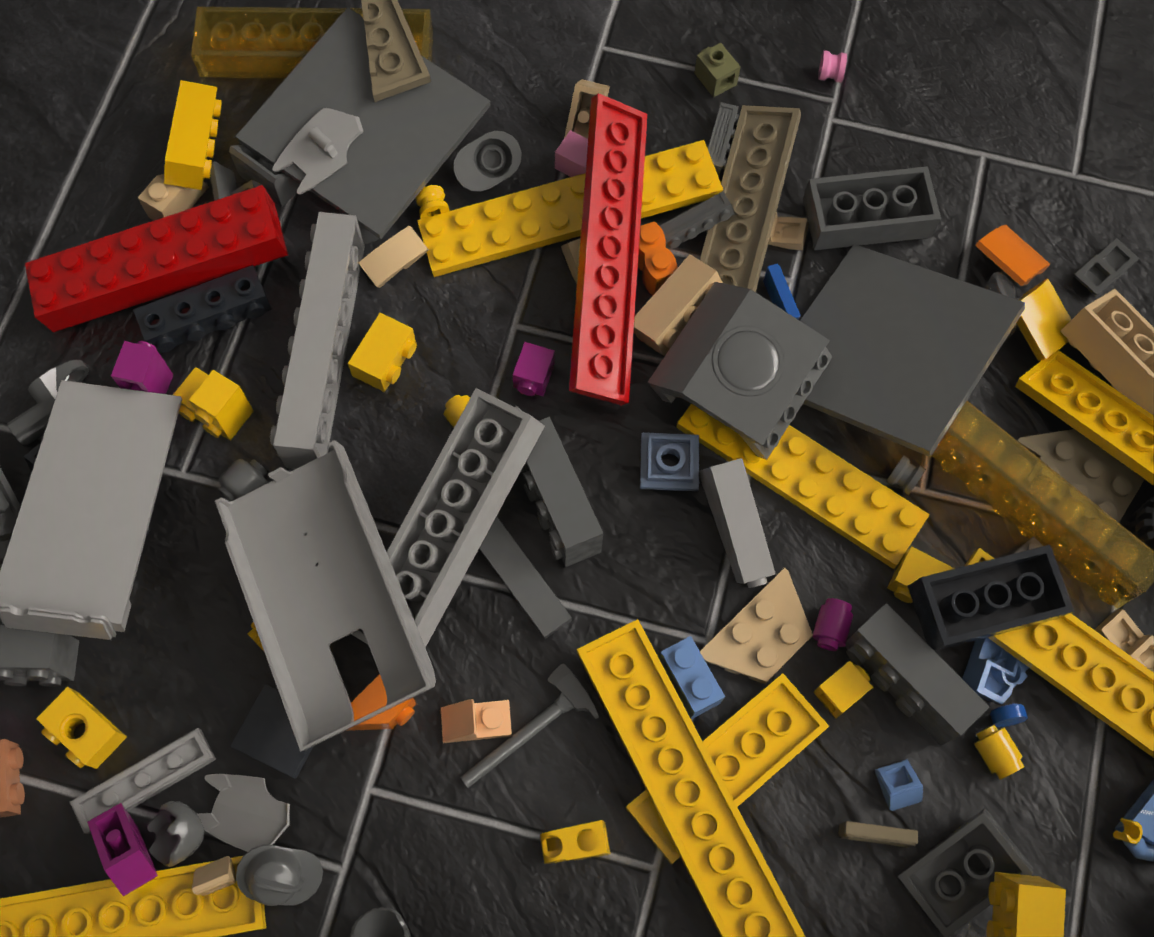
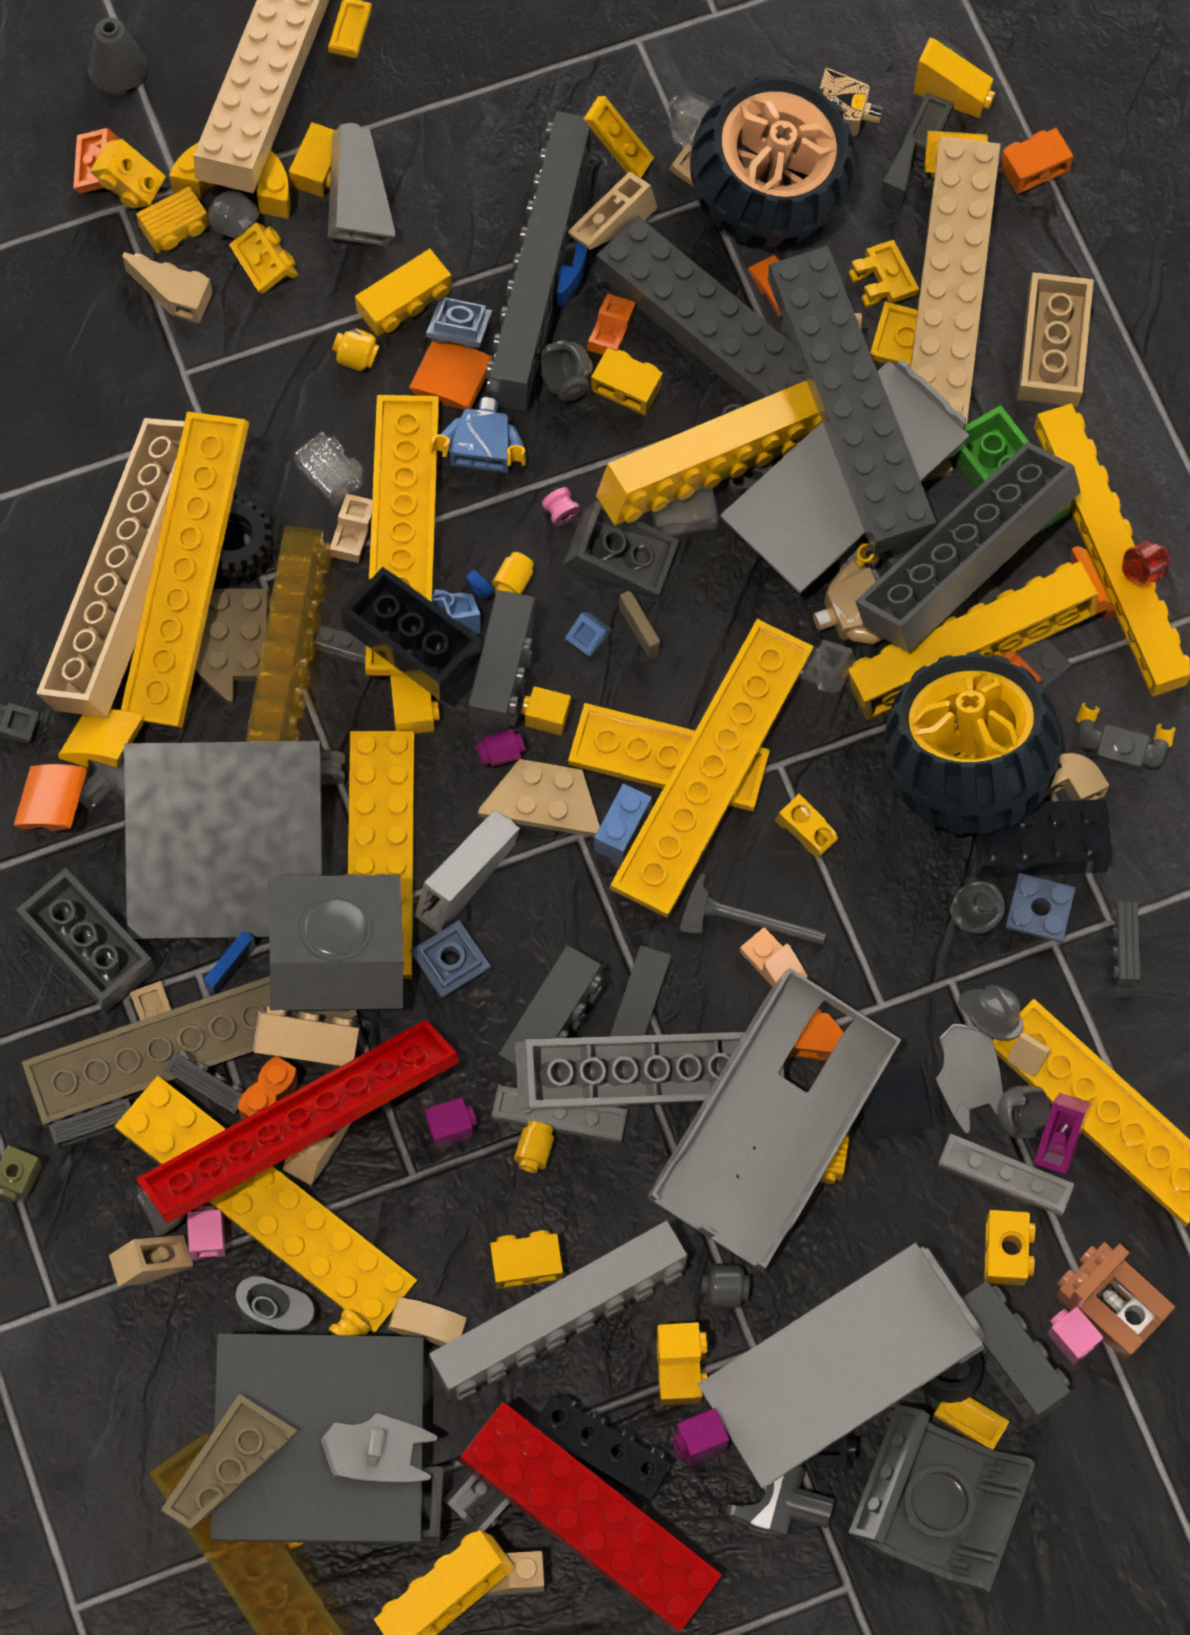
camera: 125 degrees left, 0 degrees up
(1048, 847) = (561, 506): none -> bright pink wheel

